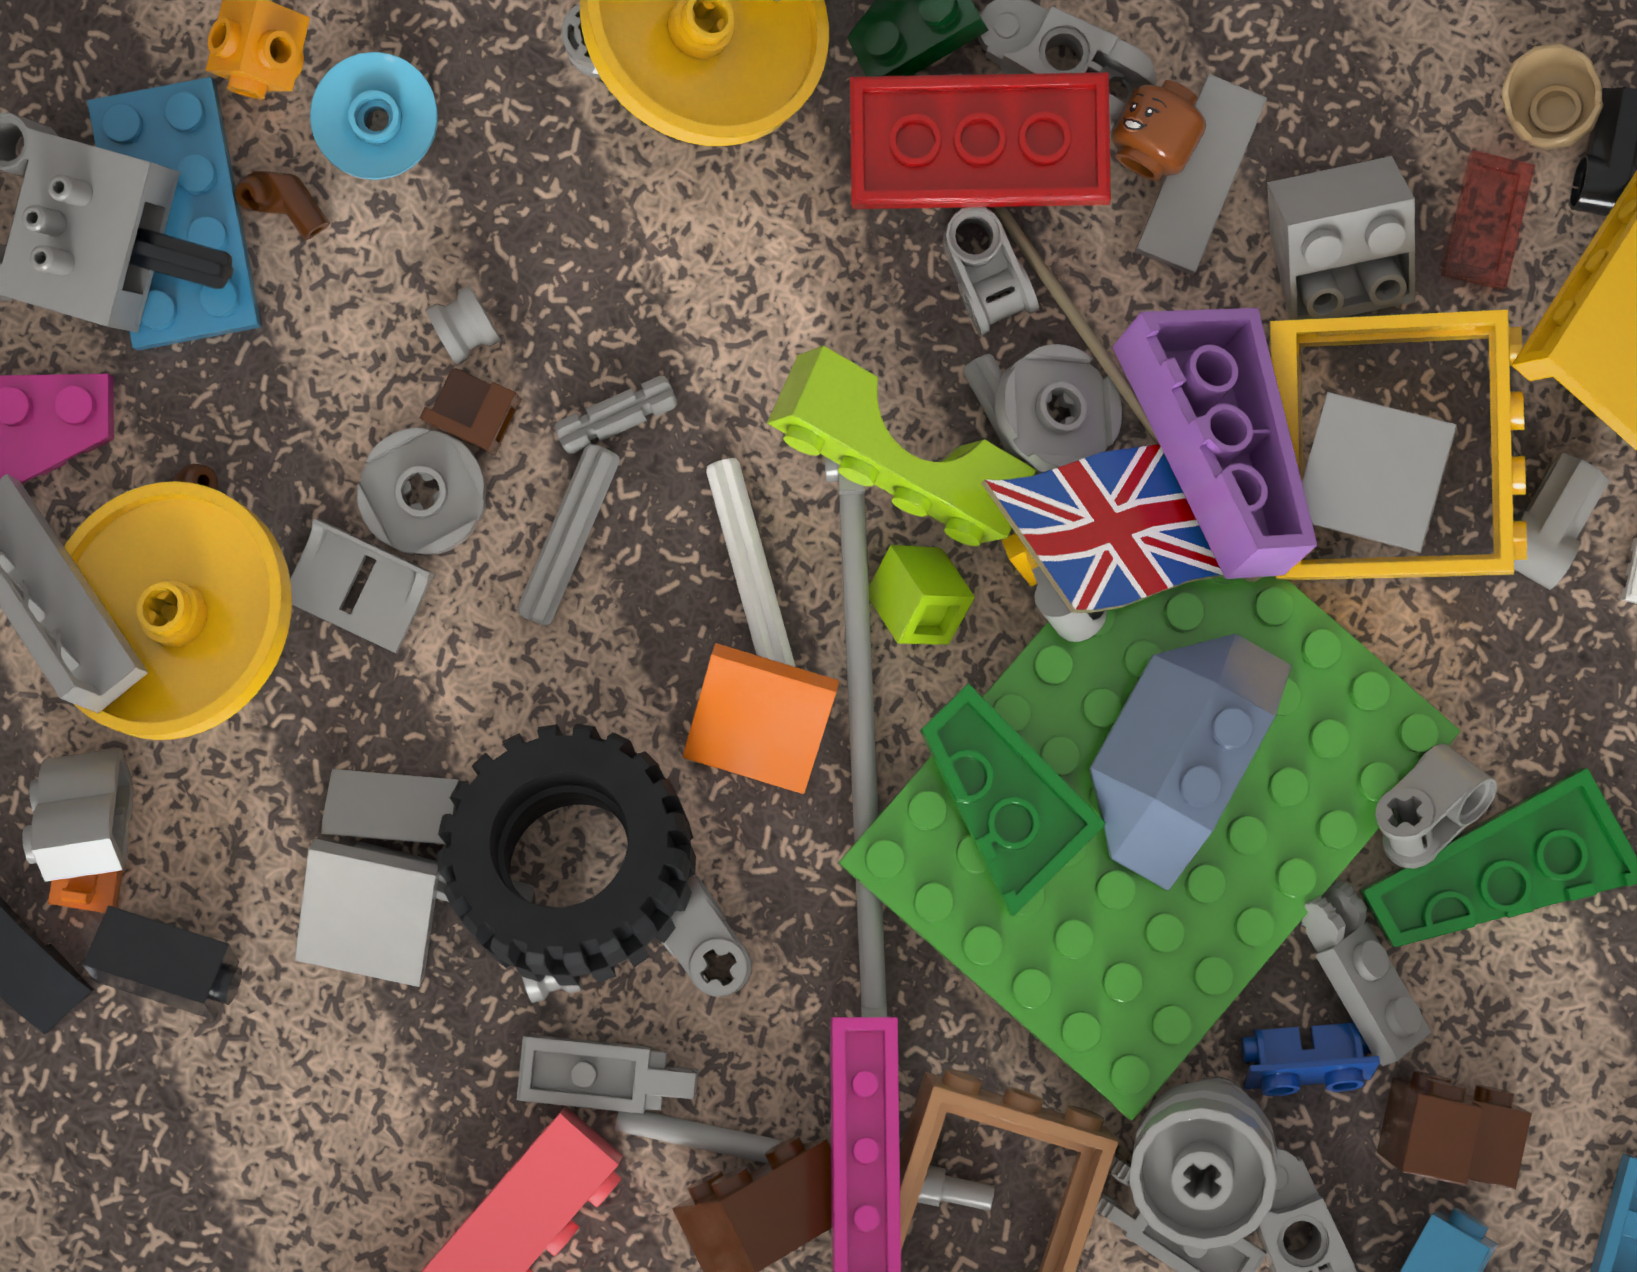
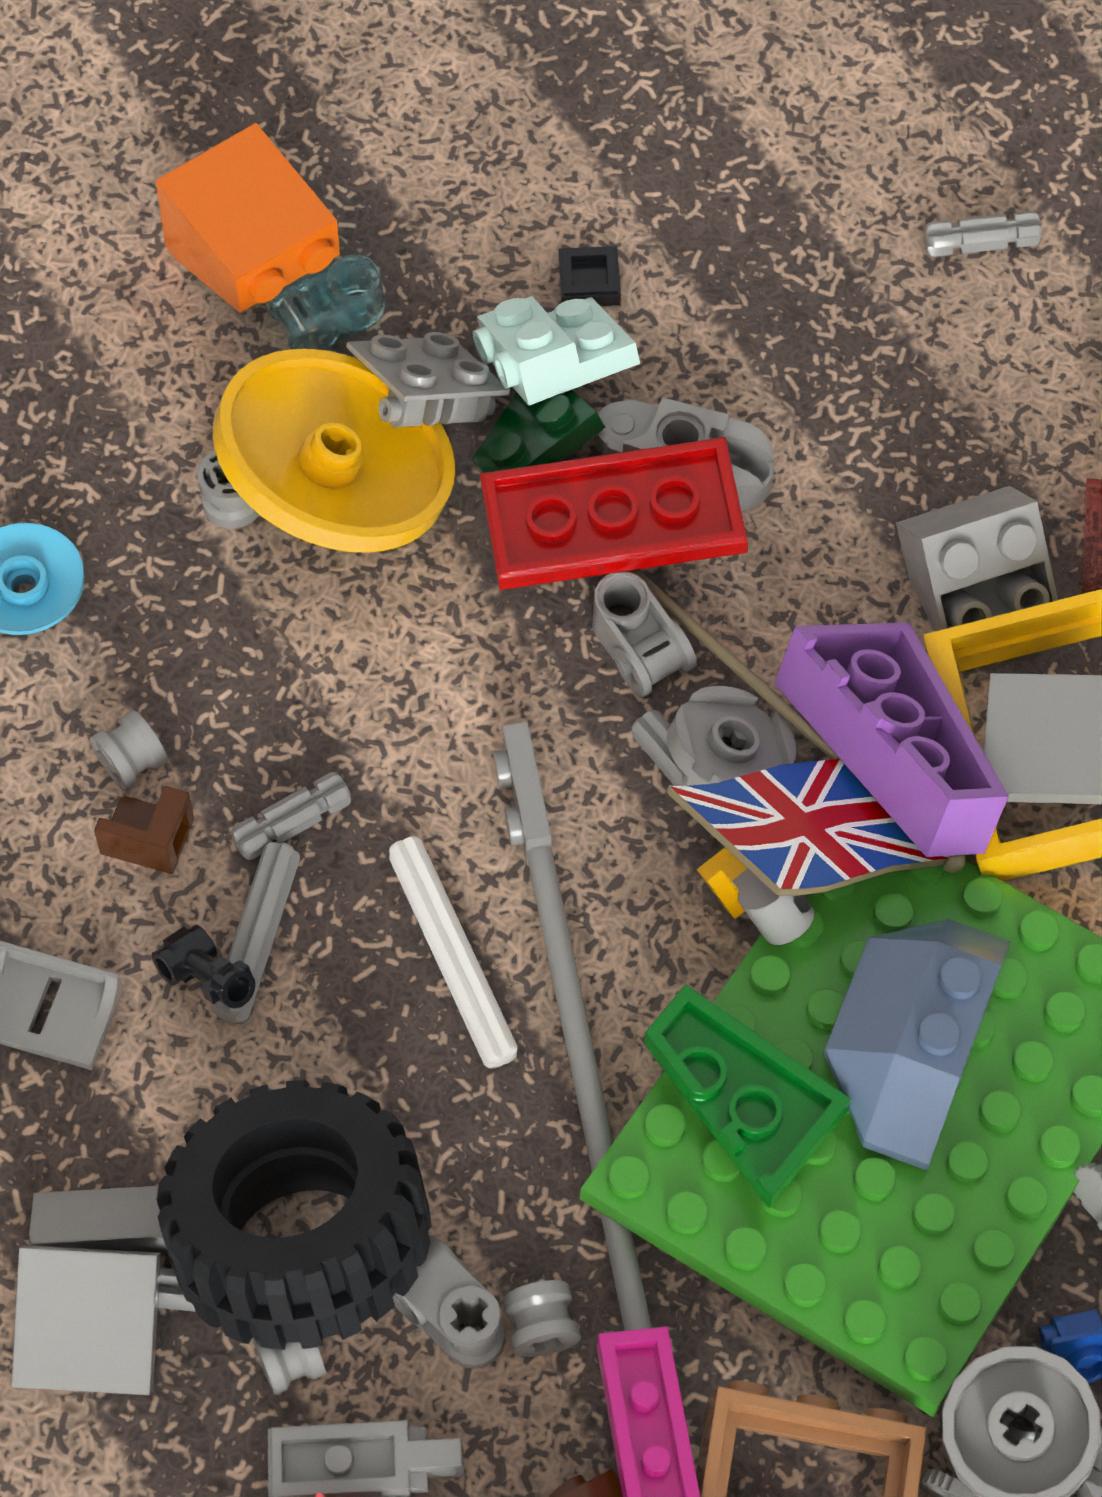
camera: 10 degrees left, 25 degrees down
(387, 482) = (110, 876): light grey plate -> none
(498, 552) = (193, 954): none -> black bar
(760, 718) = (477, 1068): orange tile -> none
(786, 967) = (541, 1318): none -> light grey wheel
(835, 412) = (512, 756): lime arch -> none
(920, 595) = (623, 937): lime panel -> none
(1158, 130) = (782, 489): dark orange head -> none
(1194, 198) = (831, 535): light grey tile -> none

